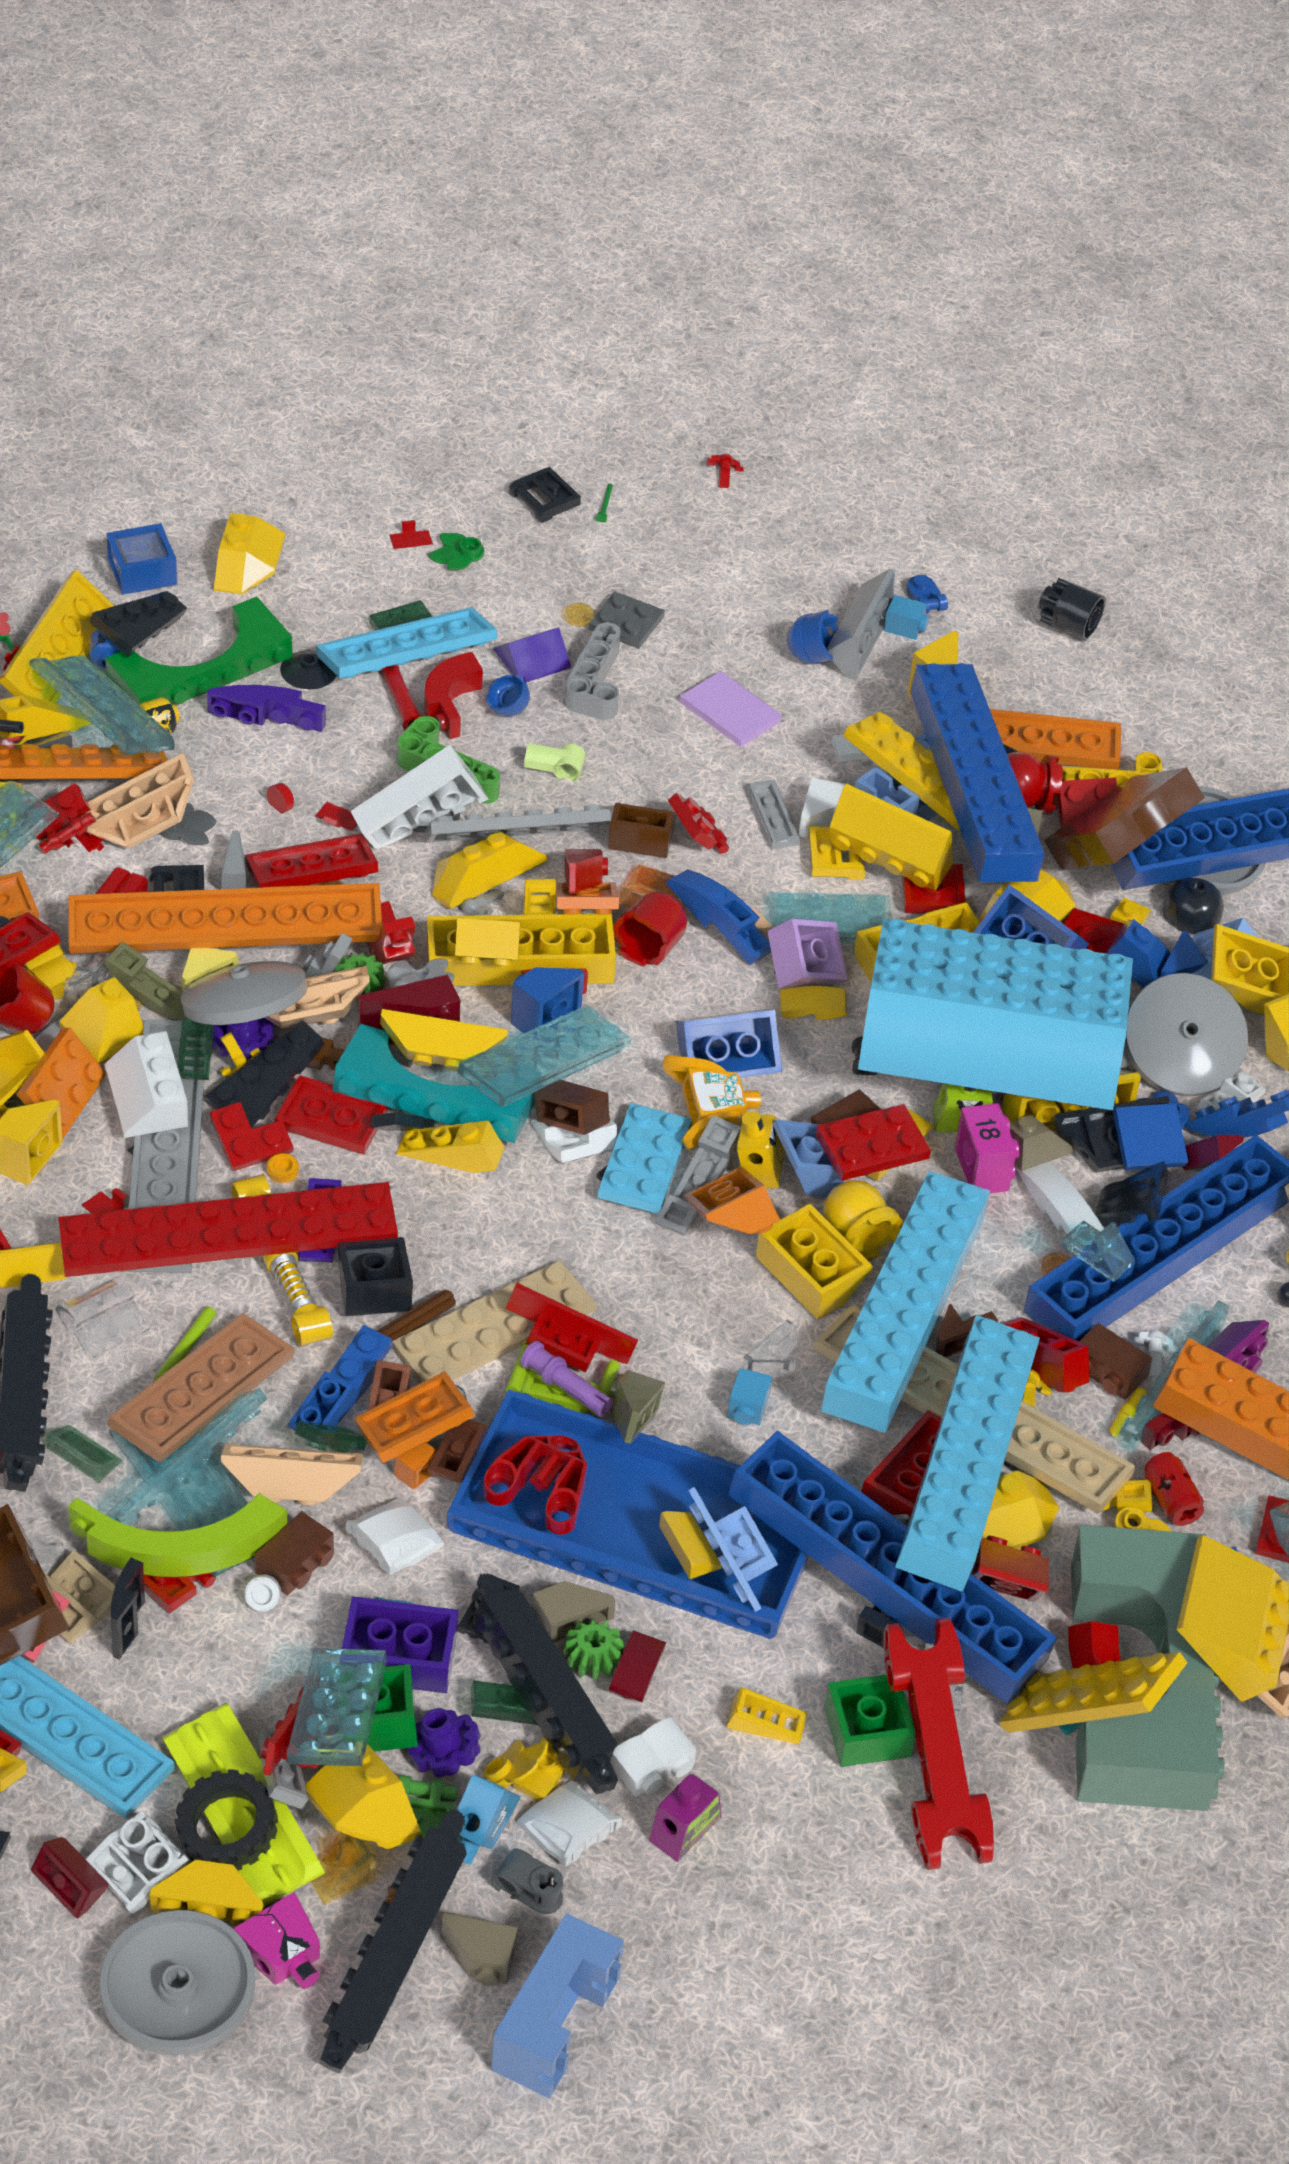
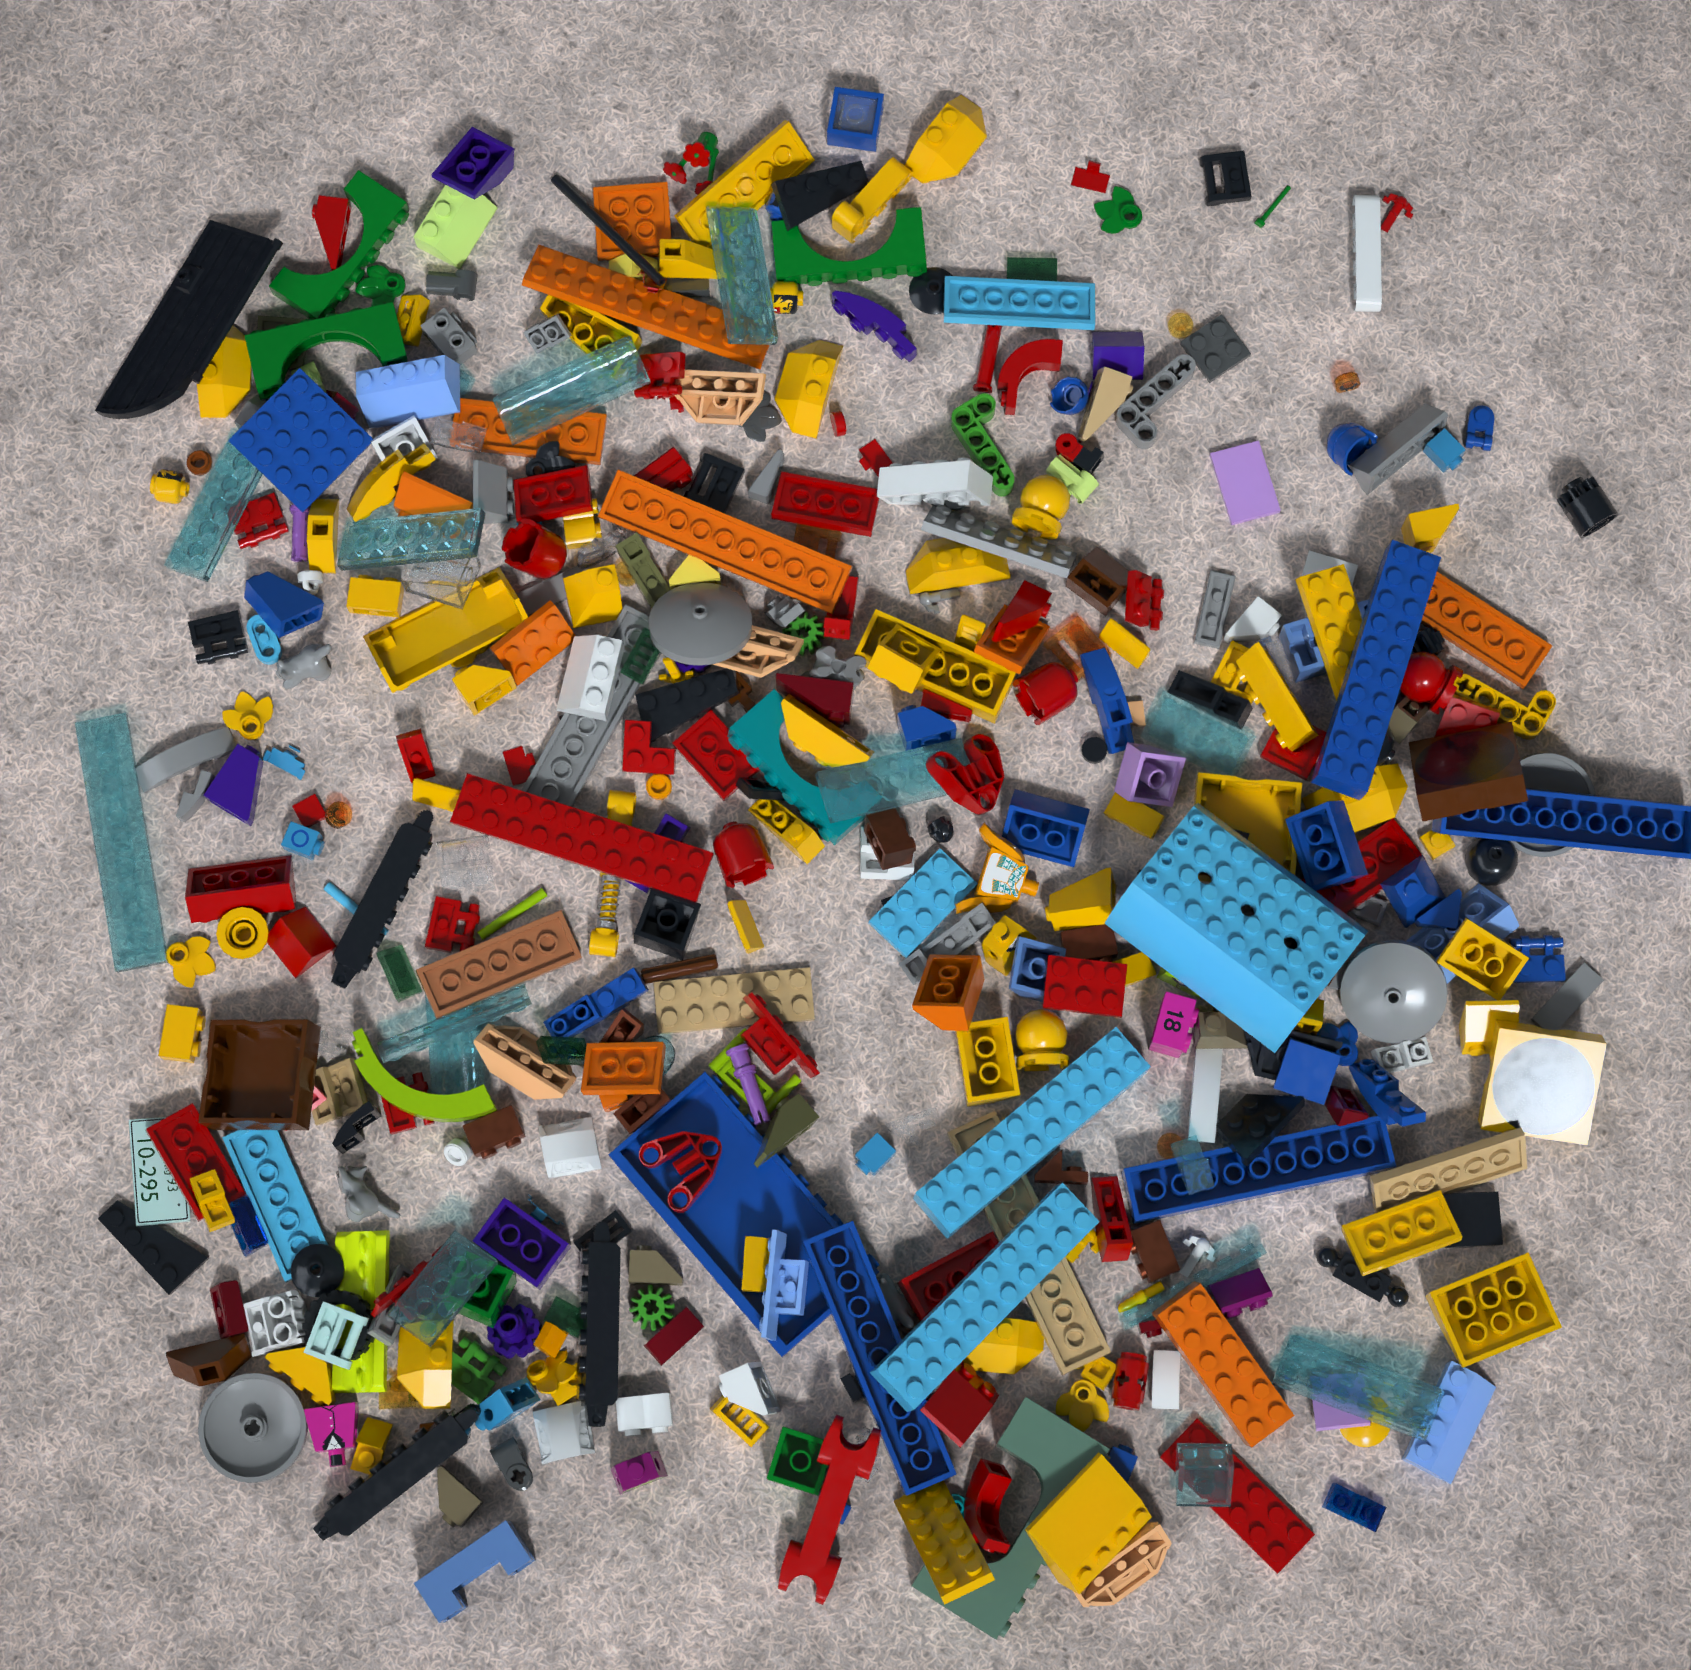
camera: 35 degrees right, 30 degrees up
(46, 1779) = (247, 1226): none -> clear blue slope
(73, 1938) = (210, 1361): none -> reddish brown slope
(110, 1378) = (444, 925): none -> red plate
(156, 1792) = (329, 1276): none -> black dish
(171, 1686) = (360, 1199): none -> light grey animal
(194, 622) = (871, 201): none -> yellow beam
(220, 1820) = (328, 1331): none -> light aqua plate
(228, 782) = (807, 385): none -> yellow wedge
(338, 1944) = (371, 1444): none -> yellow slope
(421, 1181) = (741, 854): none -> red cylinder
(460, 1253) = (745, 925): none -> yellow slope
(493, 1730) = (550, 1339): none -> light orange tile
(543, 782) = (1043, 505): none -> yellow tile
(545, 678) = (1107, 394): none -> tan slope
(546, 735) = (1077, 454): none -> leg
(620, 1087) = (941, 830): none -> black plate
(622, 1022) = (970, 782): none -> red connector
(711, 864) = (1124, 643): none -> yellow slope
(723, 503) = (1368, 253): none -> white beam
(733, 967) = (1094, 750): none -> black tile
(764, 1668) = (749, 1388): none -> white slope
(774, 599) = (1347, 382): none -> clear orange tile
(818, 1085) = (1083, 902): none -> yellow slope
(823, 878) = (1211, 698): none -> black slope
(1211, 1471) = (1166, 1379): none -> white slope

